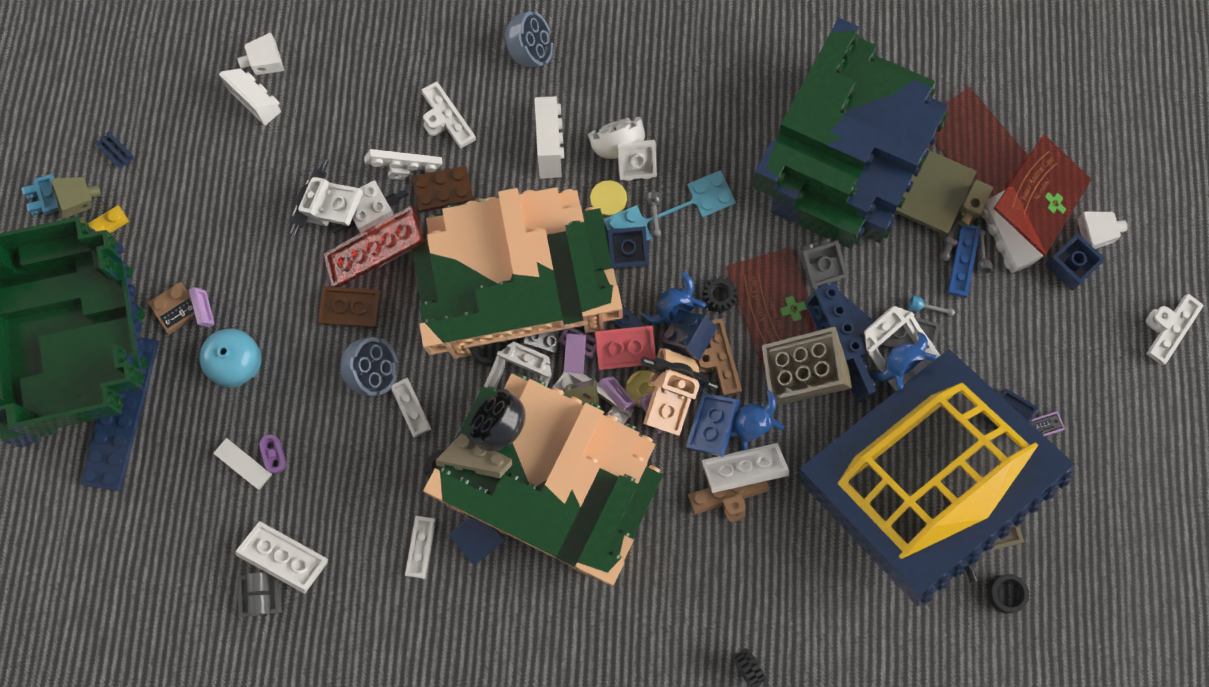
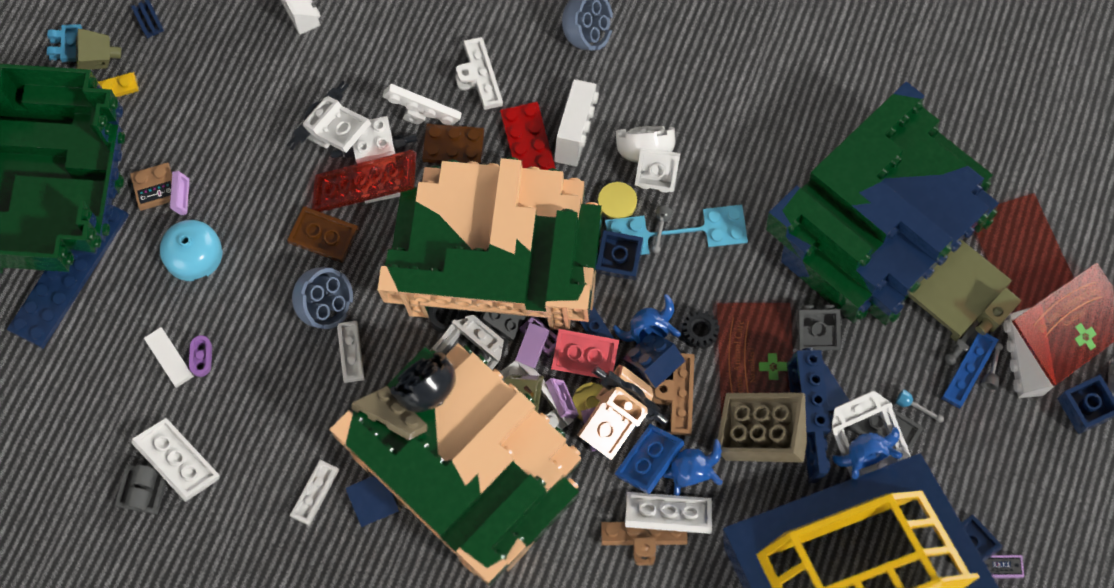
camera: 20 degrees right, 5 degrees down
(508, 162) = (527, 136): none -> red plate

